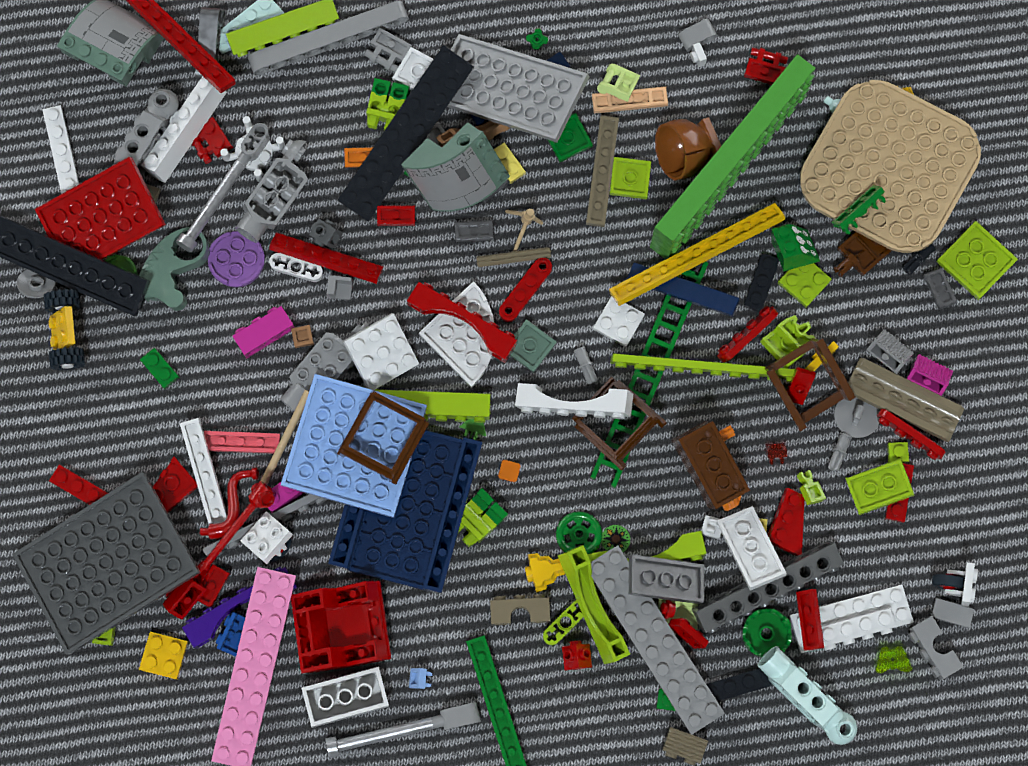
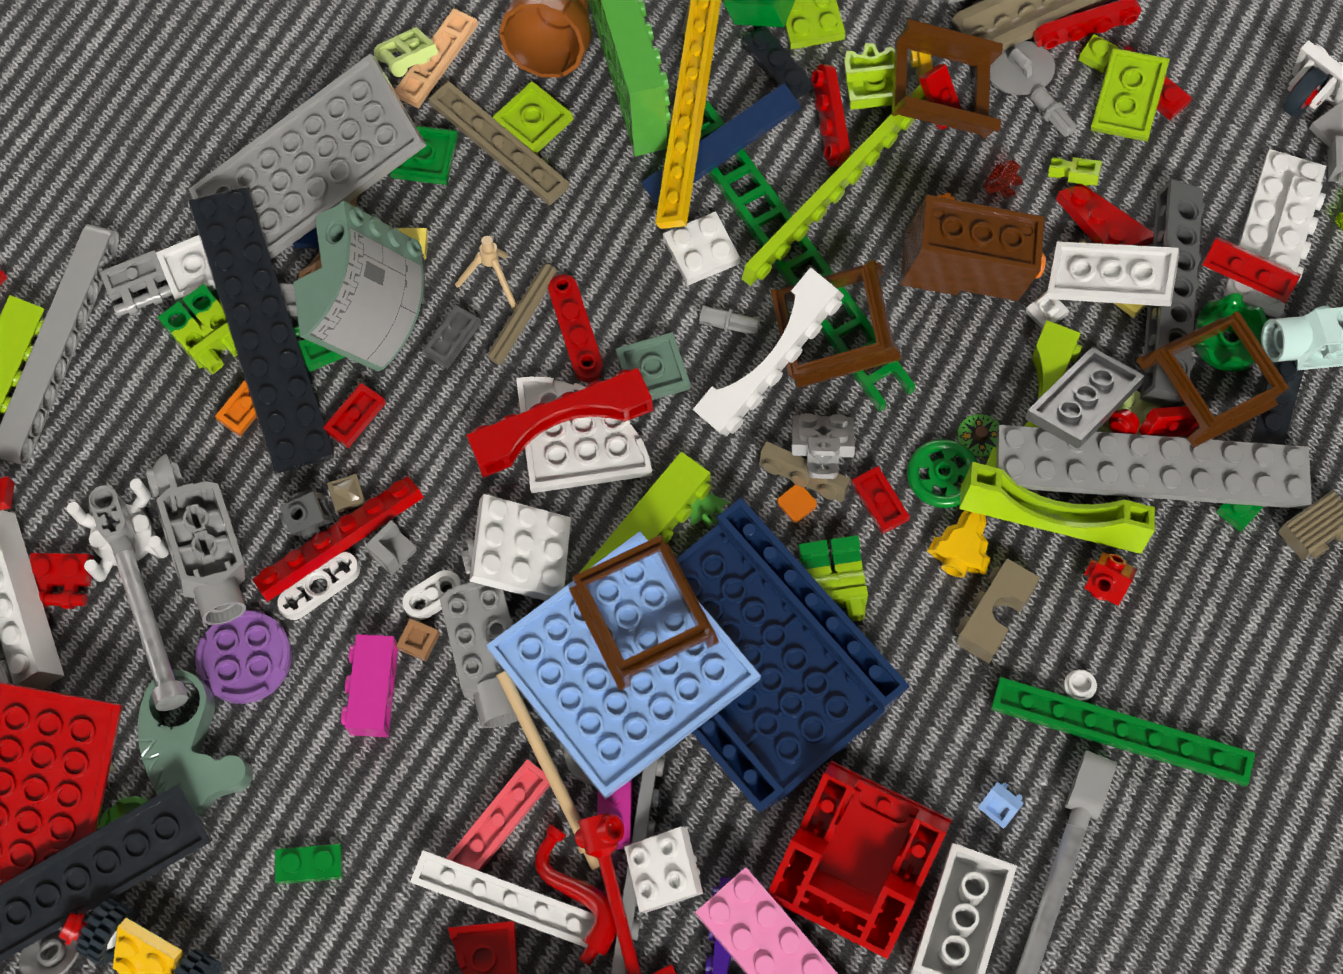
camera: 50 degrees left, 10 degrees down
(51, 285) = (72, 928): none -> red plate
(330, 326) = (429, 592): none -> white plate
(353, 243) = (346, 493): none -> dark tan tile
(510, 678) = (1080, 685): none -> white plate
(525, 463) = (781, 462): none -> dark tan plate
(536, 45) = (275, 115): green plate -> none
(539, 512) = (880, 500): none -> red plate
(540, 461) = (823, 442): none -> light grey plate
(551, 629) = (1047, 589): lime beam -> none
(700, 626) = (1209, 425): none -> reddish brown piece

